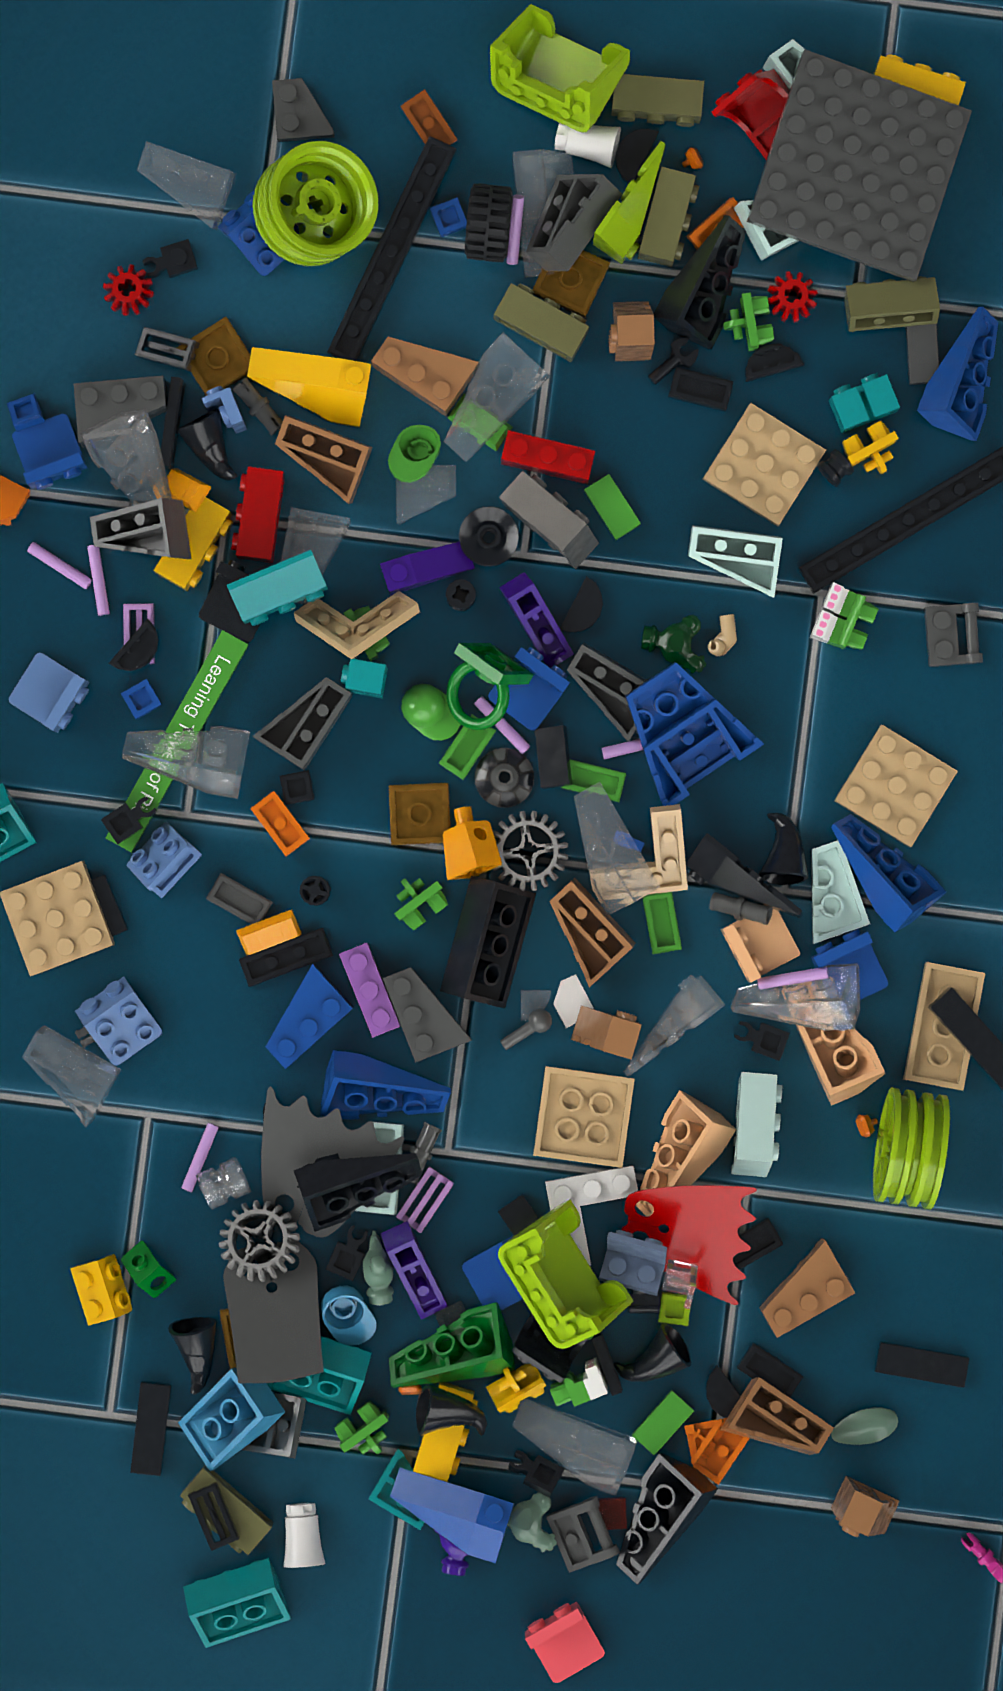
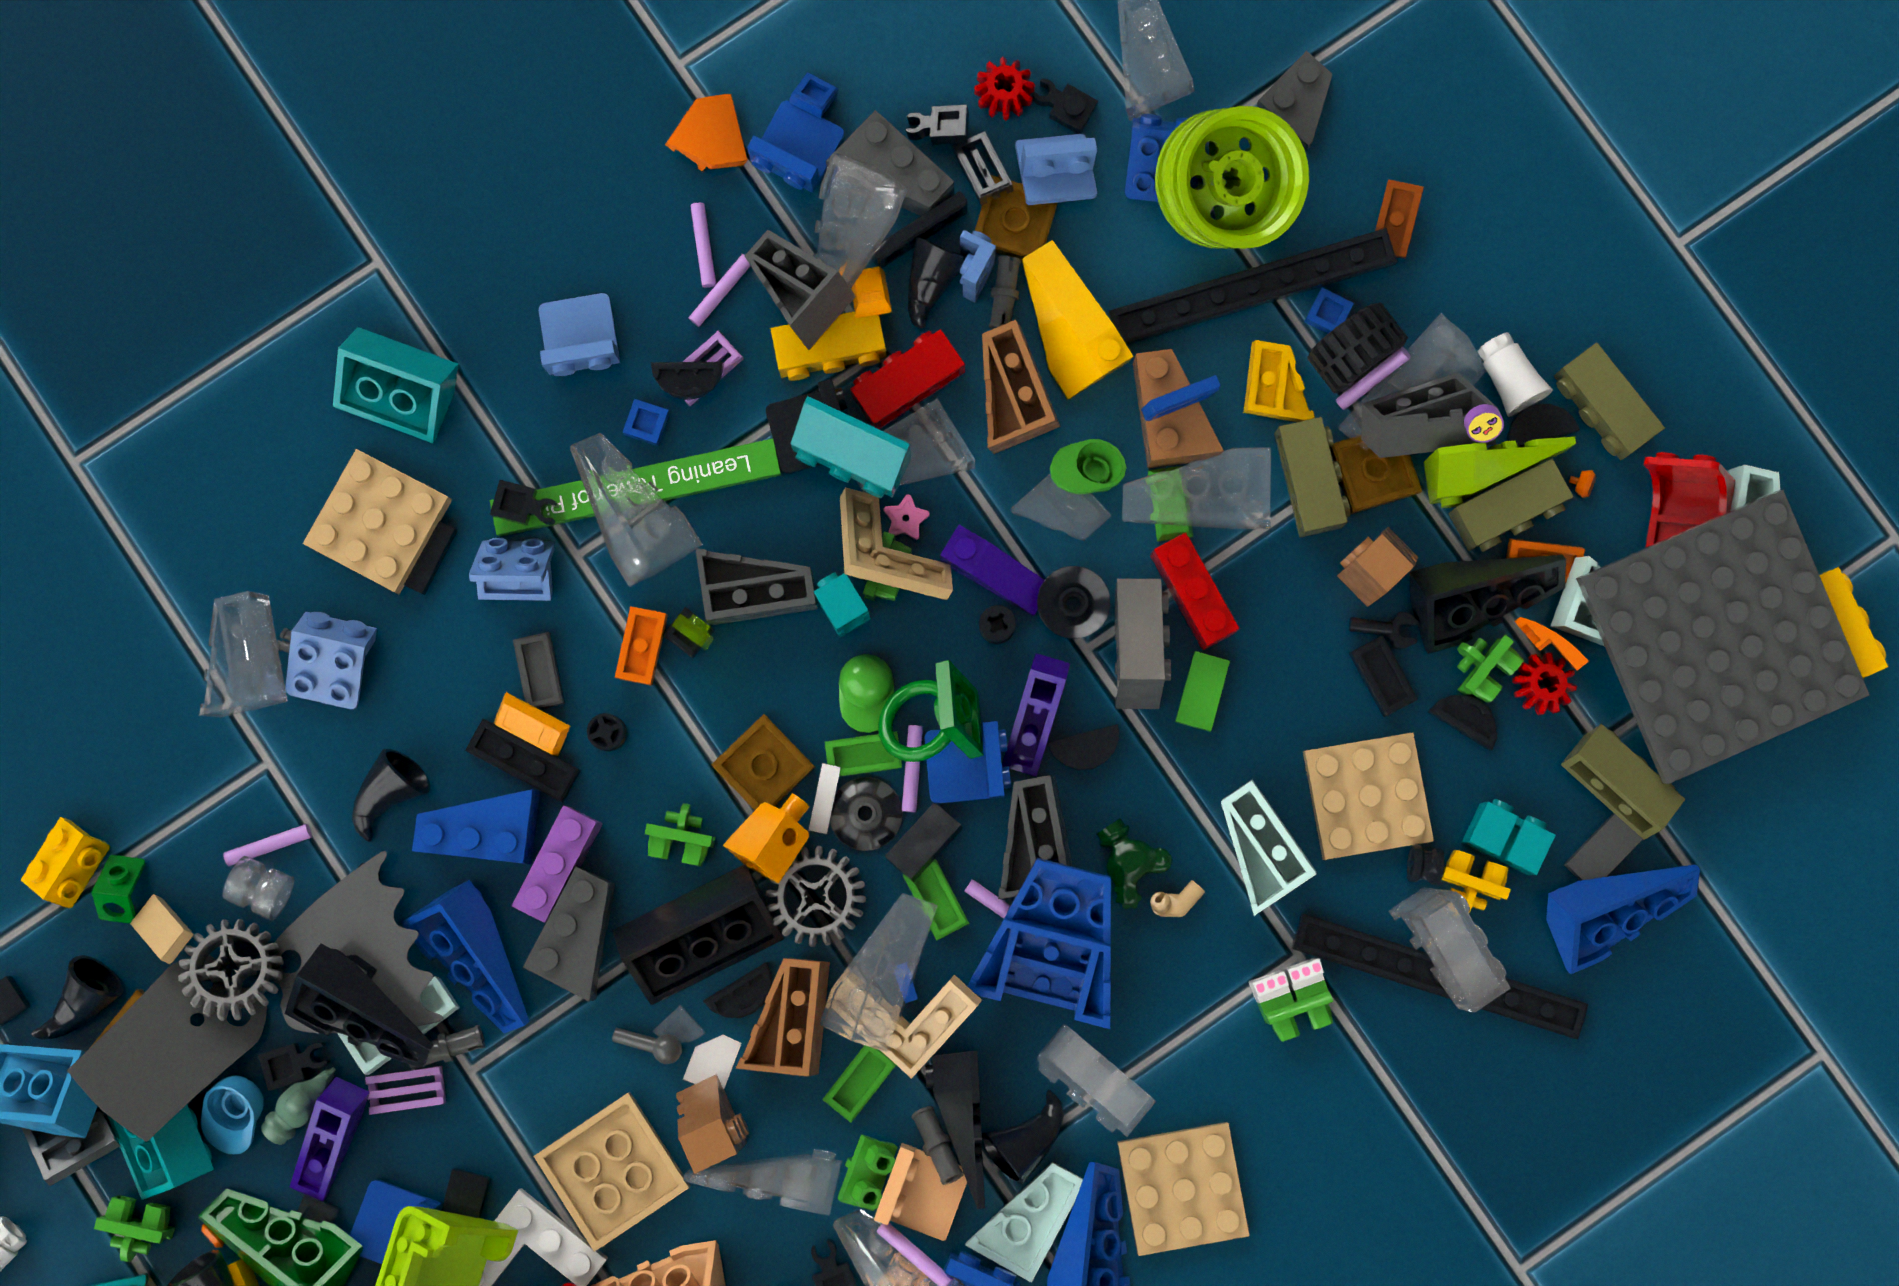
camera: 55 degrees right, 5 degrees down
(118, 347) = (944, 126): none -> plate
(197, 1262) = (161, 929): none -> tan tile
(209, 303) = (1057, 168): none -> medium blue bracket
(228, 1051) = (389, 782): none -> black hat
(301, 781) = (694, 629): none -> clear neon green plate
(344, 600) = (909, 527): none -> bright pink plate
(425, 359) = (1181, 398): none -> blue tile
(464, 292) = (1274, 385): none -> yellow wing
(473, 794) = (824, 798): none -> white sticker
(548, 947) = (743, 995): none -> black tile
(553, 72) = (1544, 287): lime windscreen -> none
(604, 191) = (1483, 423): none -> tile
(720, 963) = (867, 1173): none -> bright green hips
(762, 271) = (1542, 636): none -> orange slope
(785, 781) = (1094, 1081): none -> clear wedge
(898, 495) = (1455, 947): none -> clear wedge
(943, 635) = (1362, 1106): dark grey plate -> none

